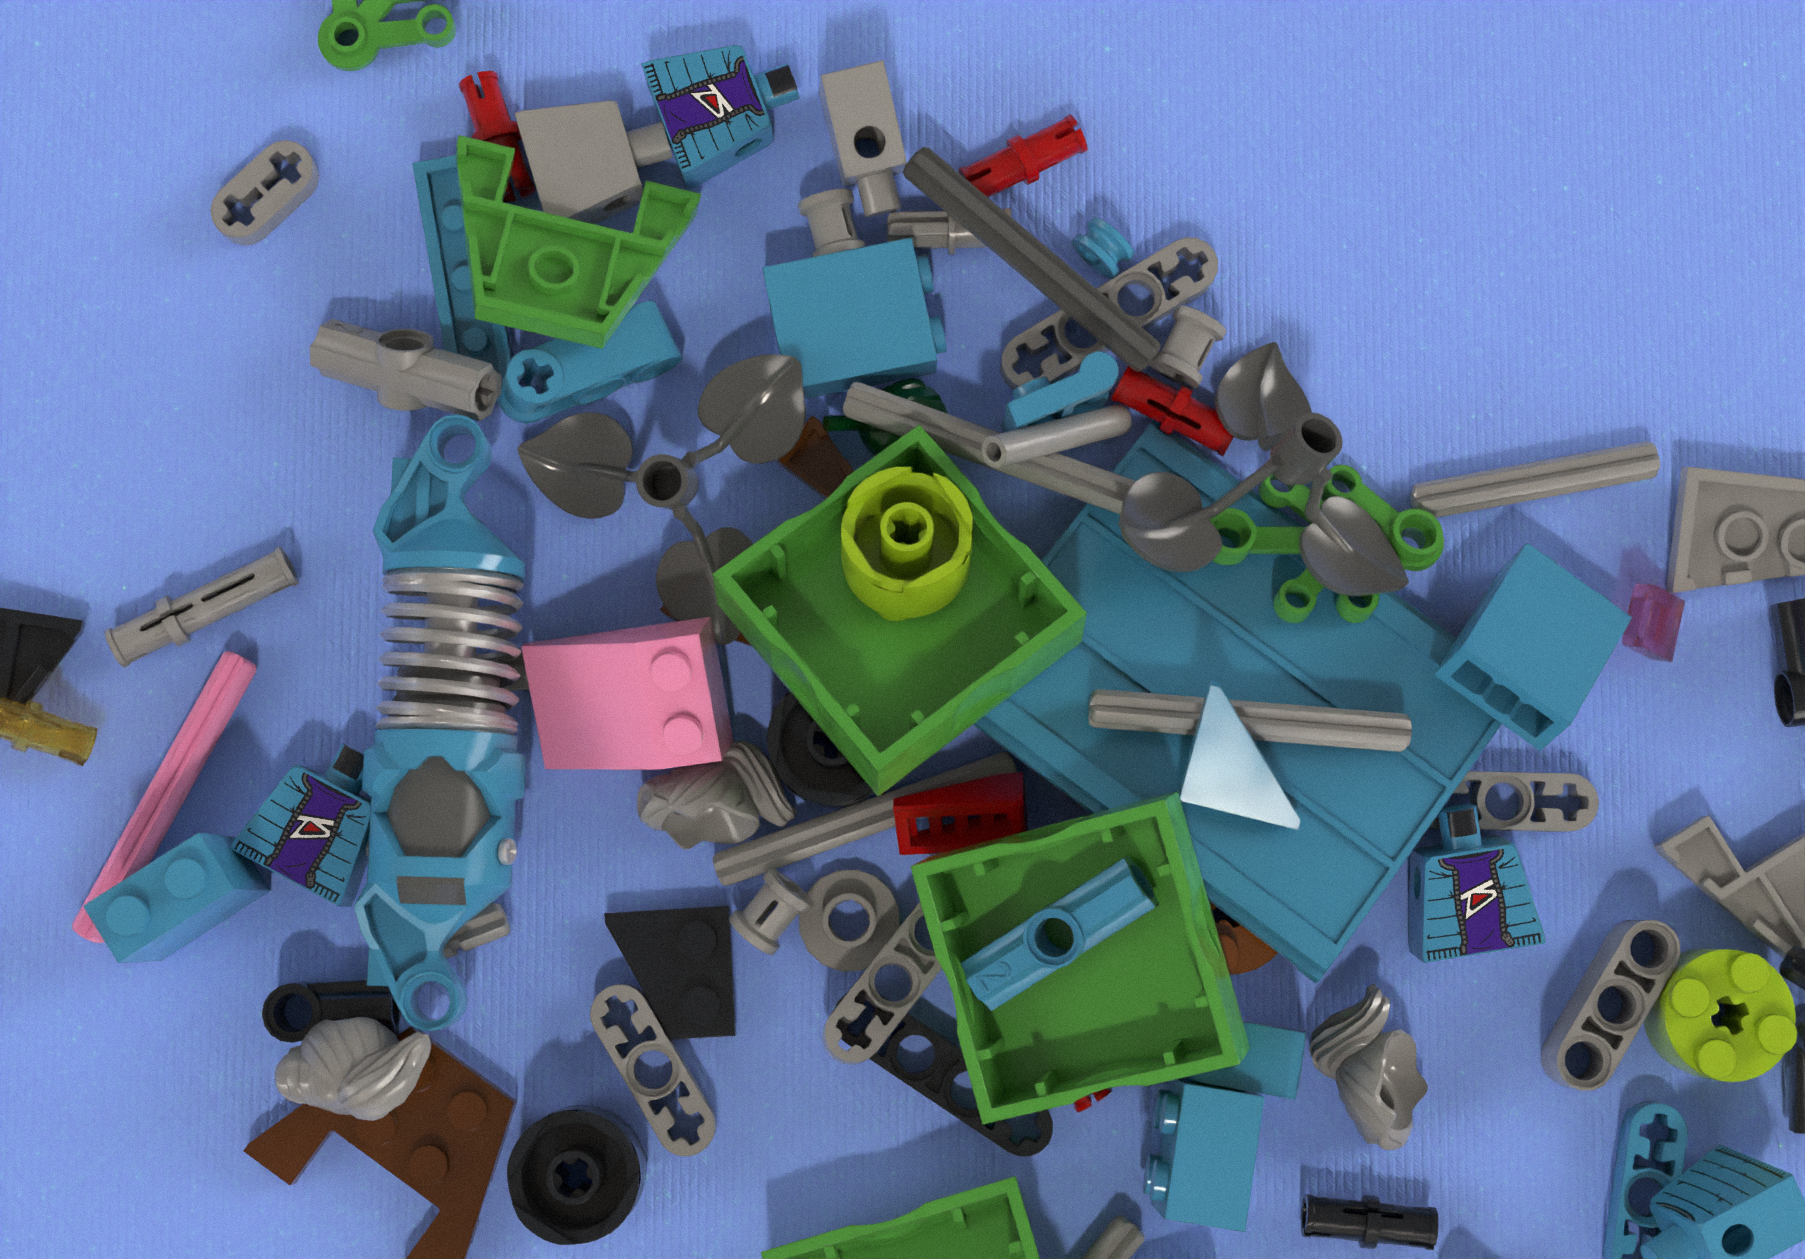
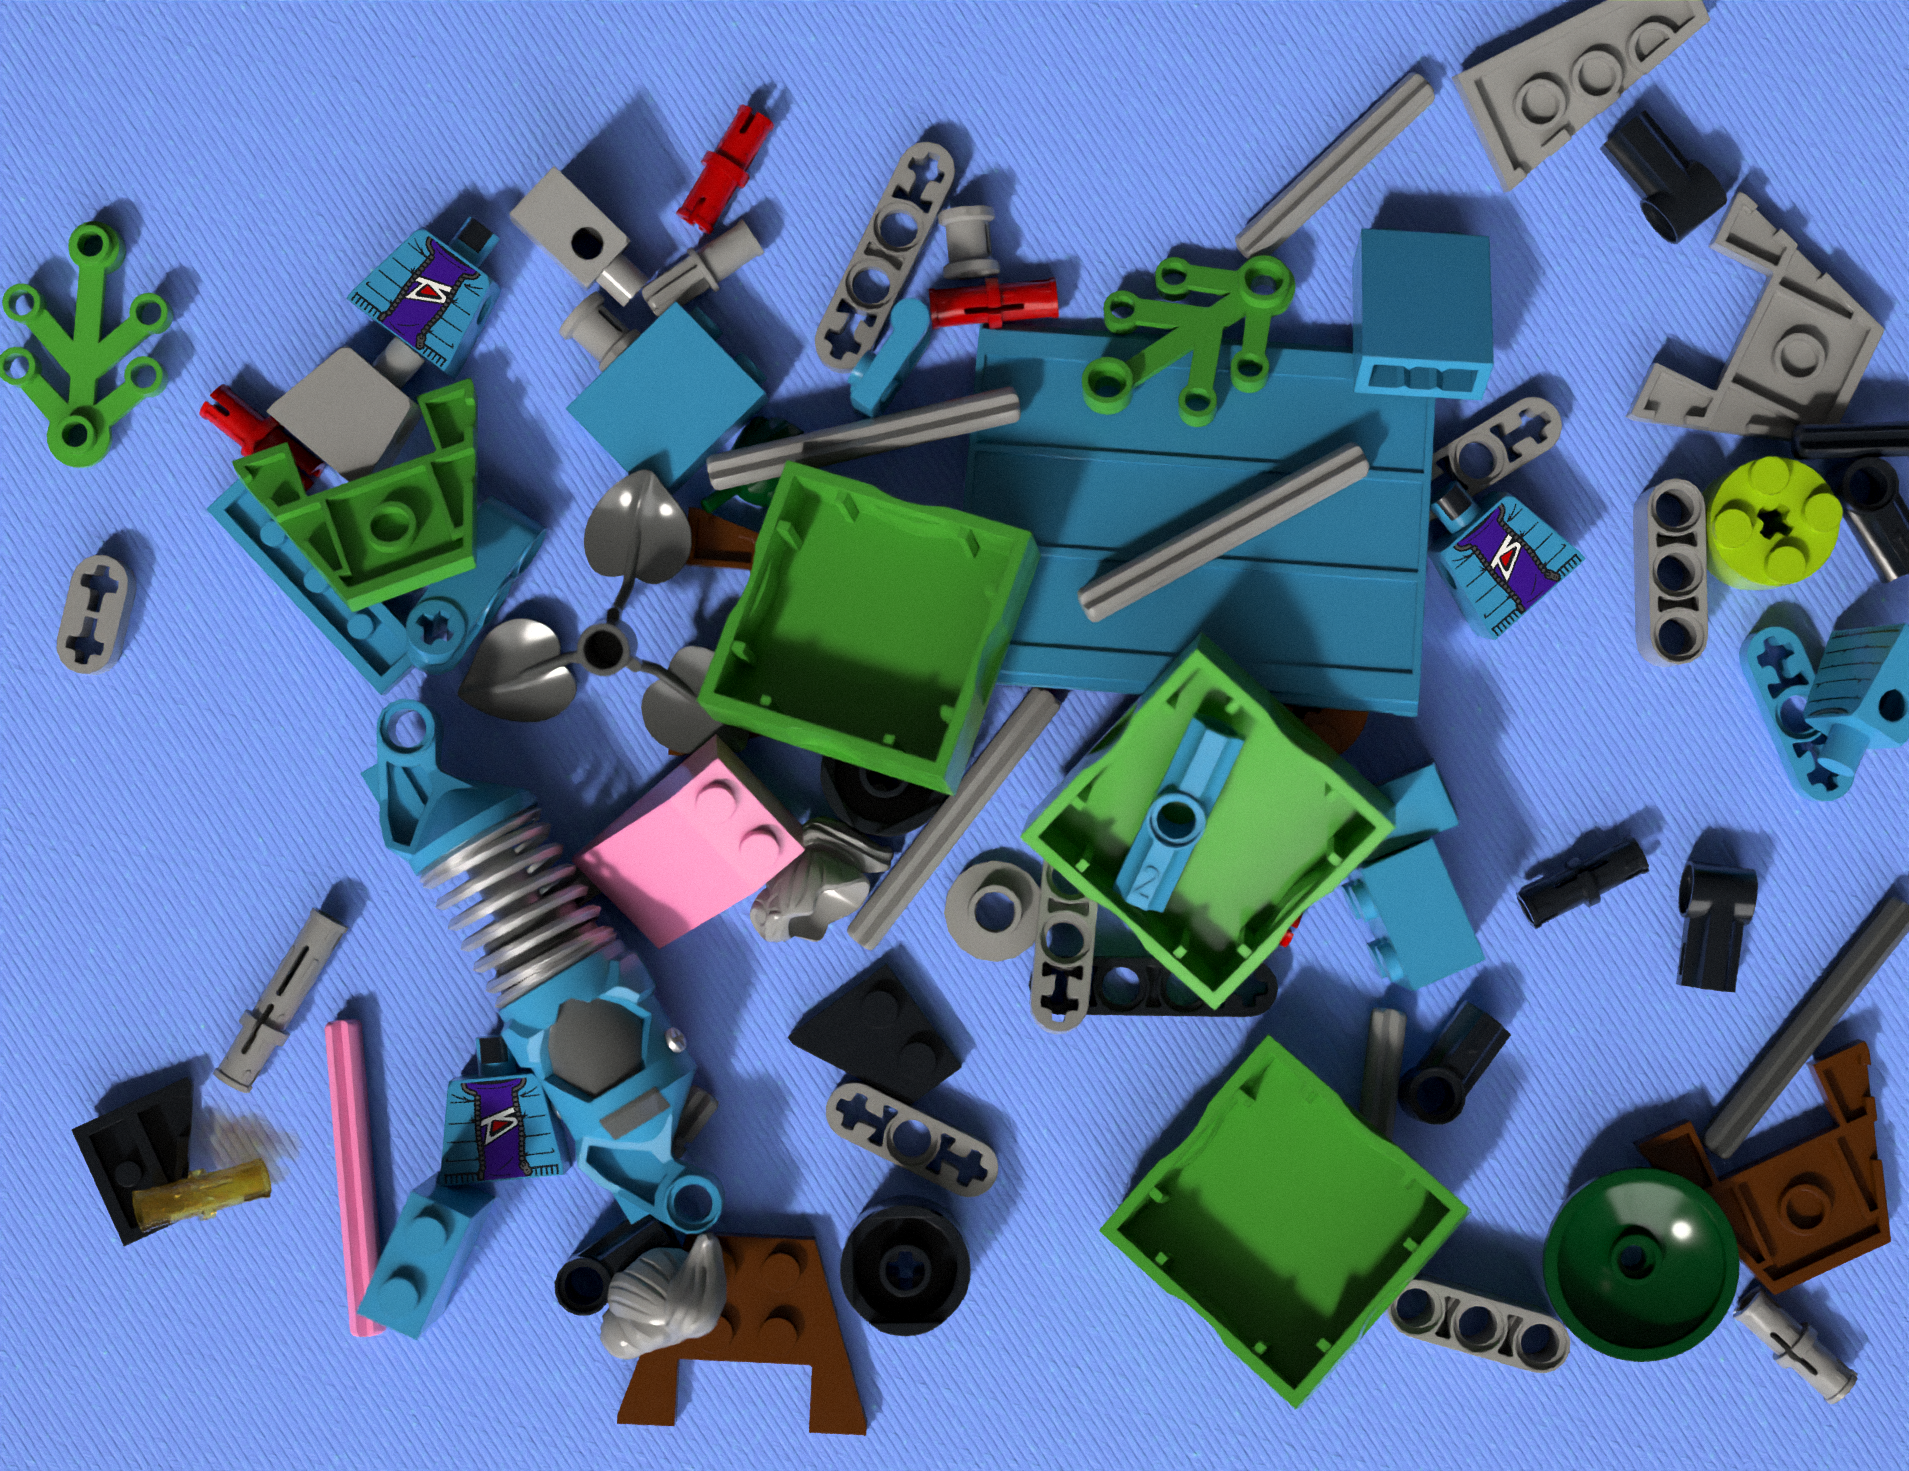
camera: 30 degrees left, 5 degrees up
(406, 369) = (320, 690): light grey piece -> none
(751, 921) = (914, 965): light grey bush -> none
(936, 546) = (831, 535): lime brick -> none
(995, 798) = (1053, 735): red slope -> none
(1031, 259) = (788, 253): dark grey axle -> none
(1055, 436) = (908, 393): light grey piece -> none
(1103, 247) = (842, 203): dark azure bush -> none
(1228, 768) = (1233, 585): tile -> none
(1264, 403) = (1065, 249): dark grey plant -> none
(1371, 1069) = (1506, 756): light grey hair -> none
(1654, 622) = (1510, 227): clear pink tile -> none

